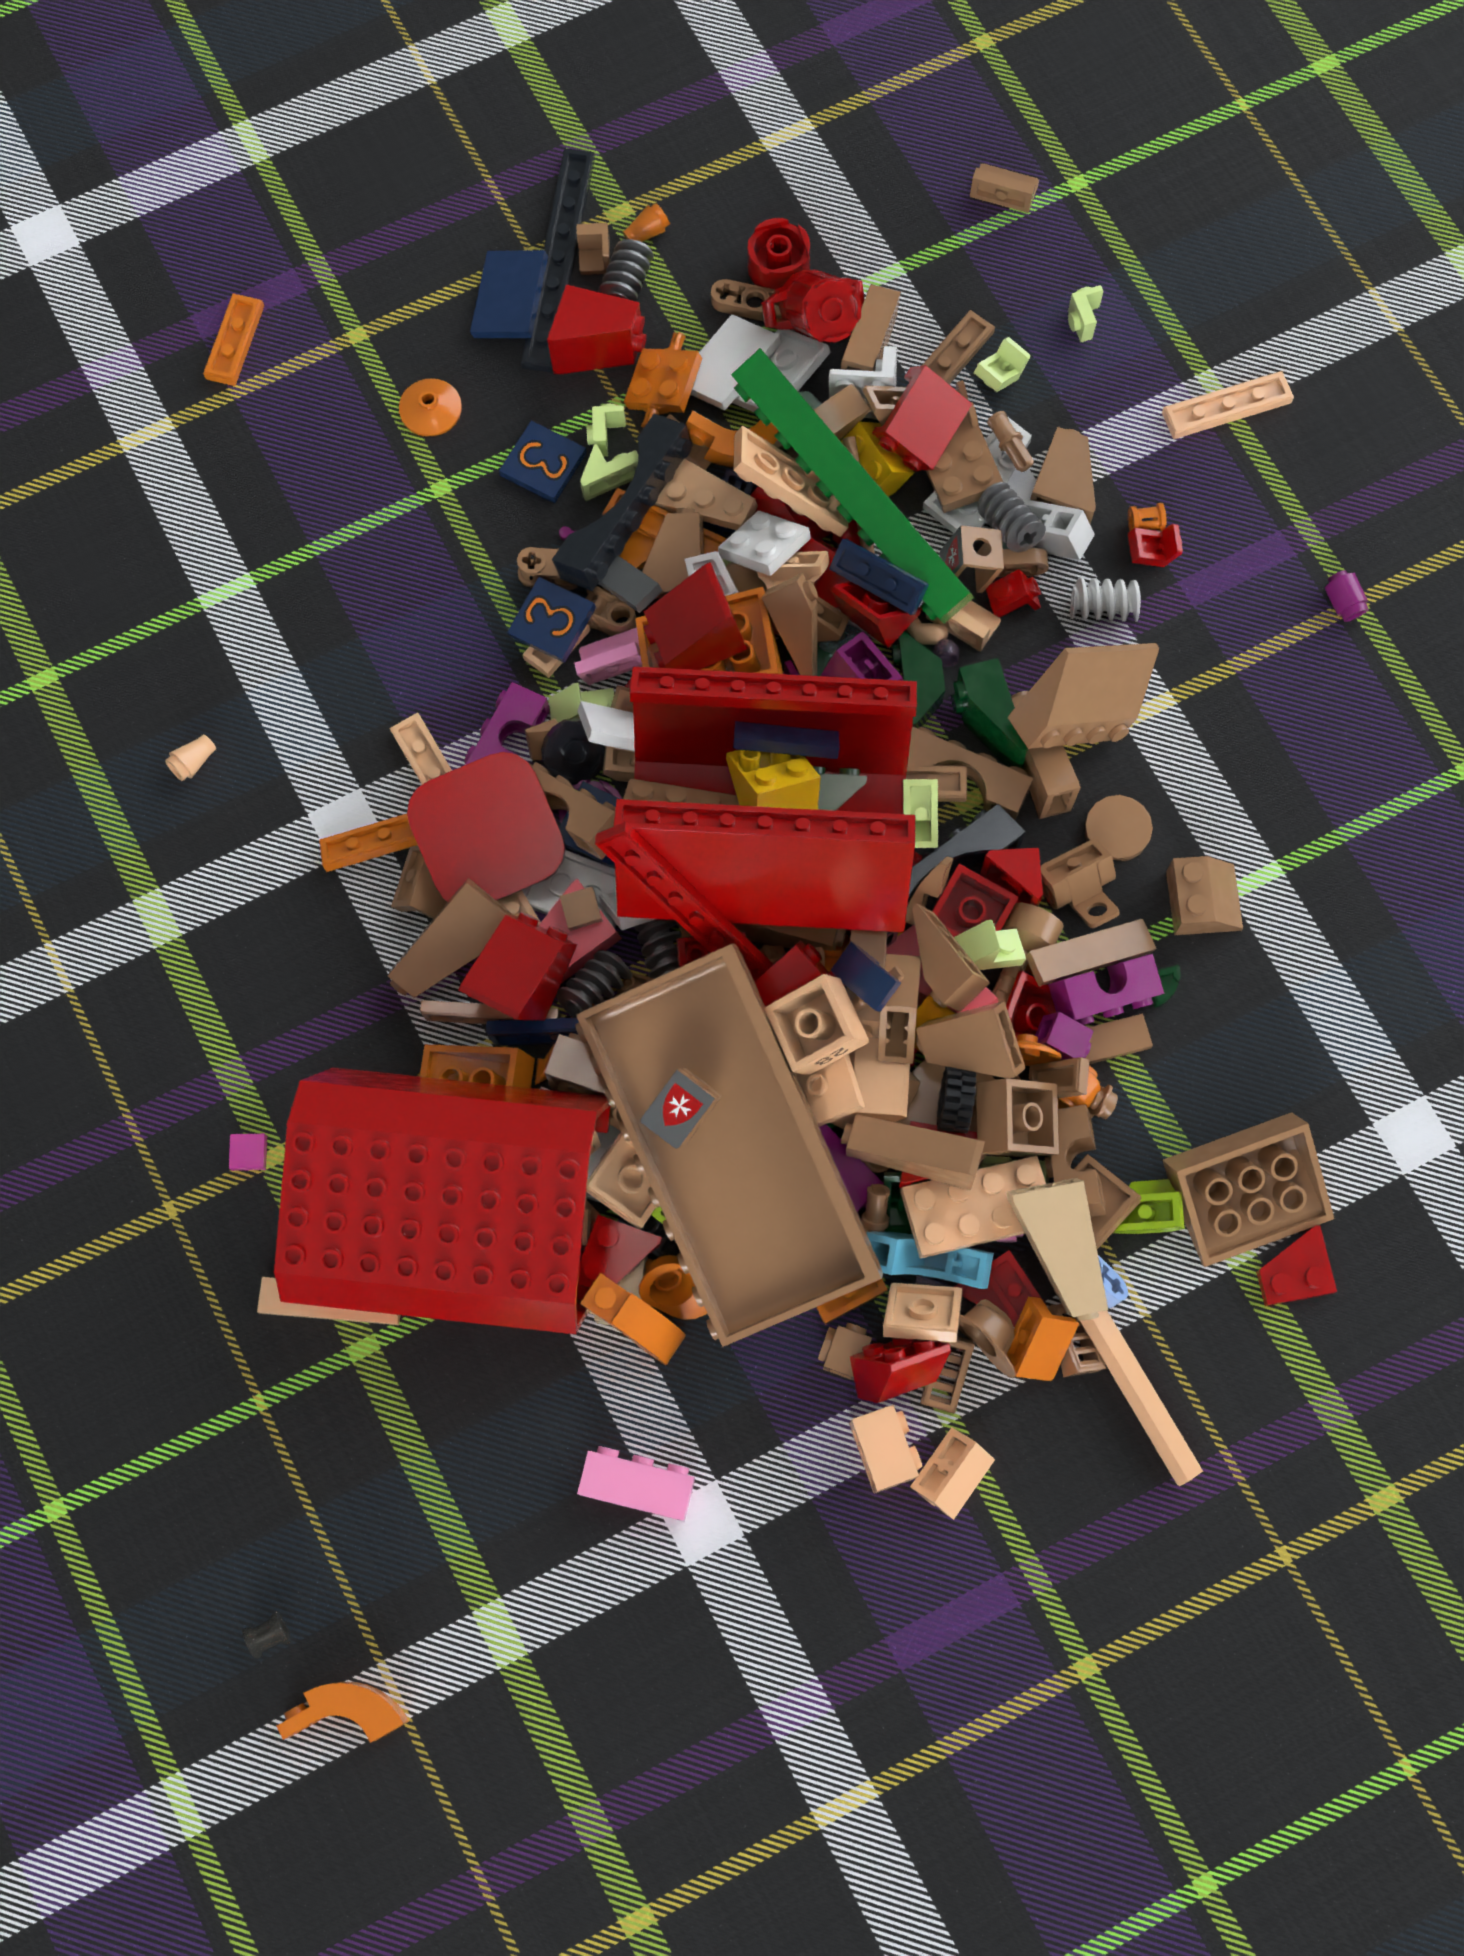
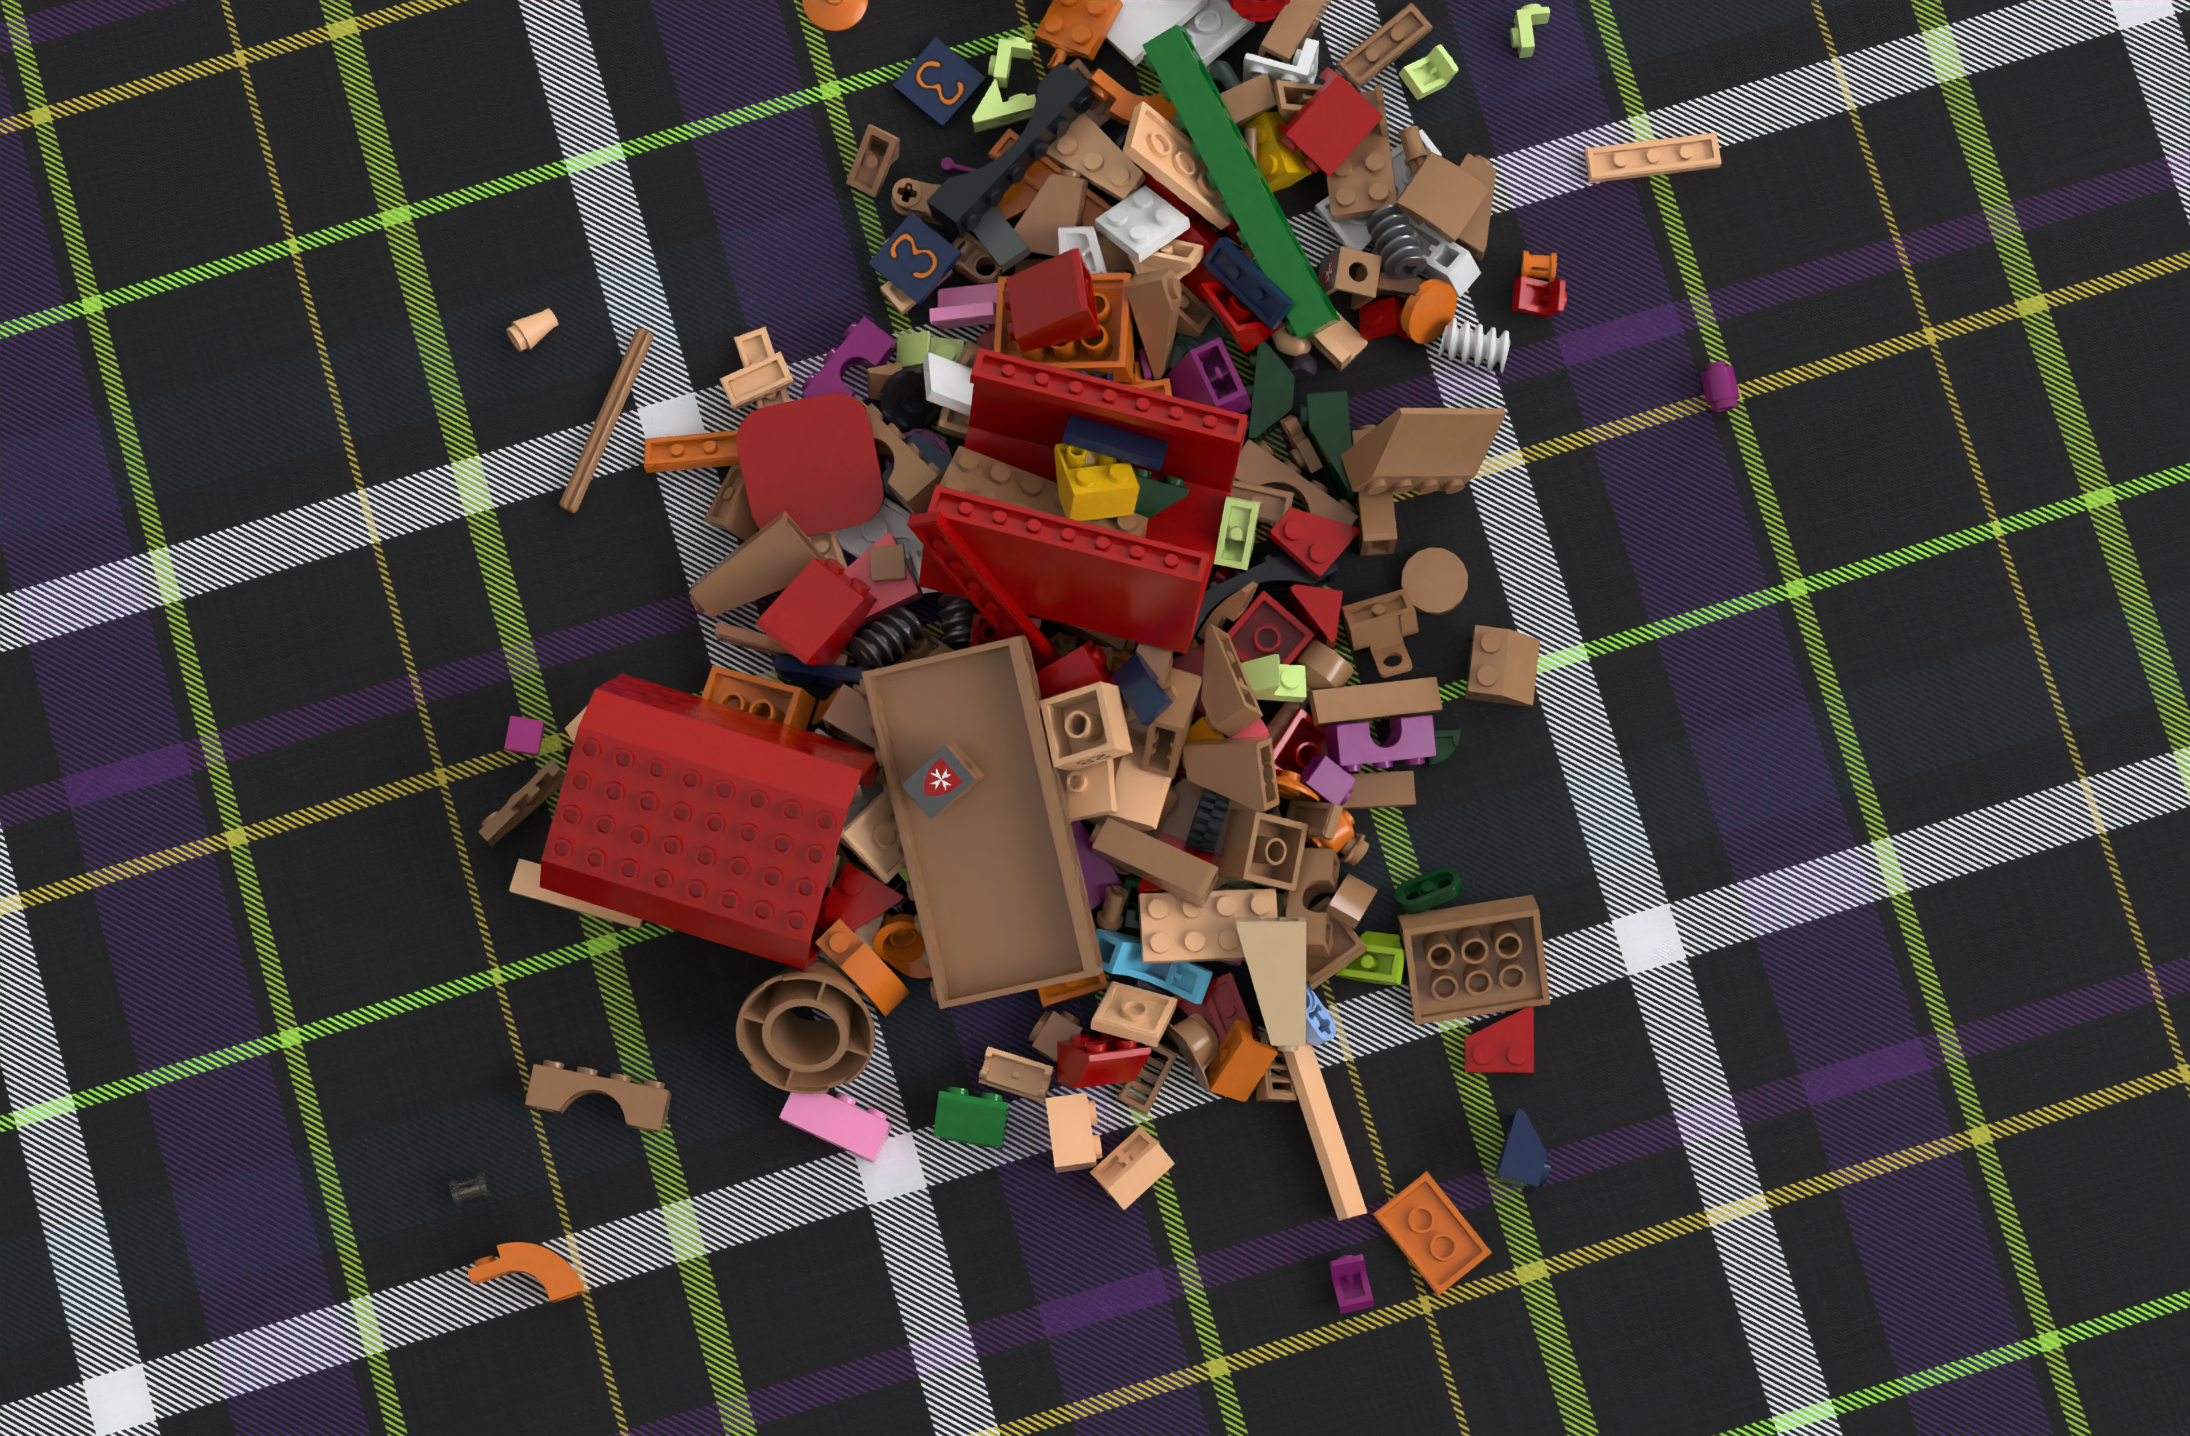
camera: 10 degrees right, 5 degrees up
(253, 1223) = (523, 803): none -> medium nougat wing
(278, 830) = (606, 420): none -> medium nougat axle
(340, 1508) = (555, 1089): none -> medium nougat arch
(419, 763) = (757, 381): none -> light nougat tile
(493, 538) = (873, 160): none -> medium nougat slope
(593, 1420) = (801, 1052): none -> medium nougat cone
(777, 1454) = (971, 1118): none -> green slope
(812, 1399) = (1016, 1074): none -> light nougat hinge
(962, 724) = (1303, 451): none -> medium nougat plate
(994, 806) = (1312, 539): none -> red wing
(1044, 466) = (1442, 196): none -> medium nougat slope
(1055, 575) = (1429, 311): none -> orange tile
(1114, 1154) = (1351, 901): none -> medium nougat slope
(1186, 1128) = (1428, 890): none -> dark green plate
(1206, 1550) = (1351, 1283): none -> magenta bracket
(1274, 1480) = (1432, 1233): none -> orange tile
(1350, 1378) = (1522, 1156): none -> dark blue slope

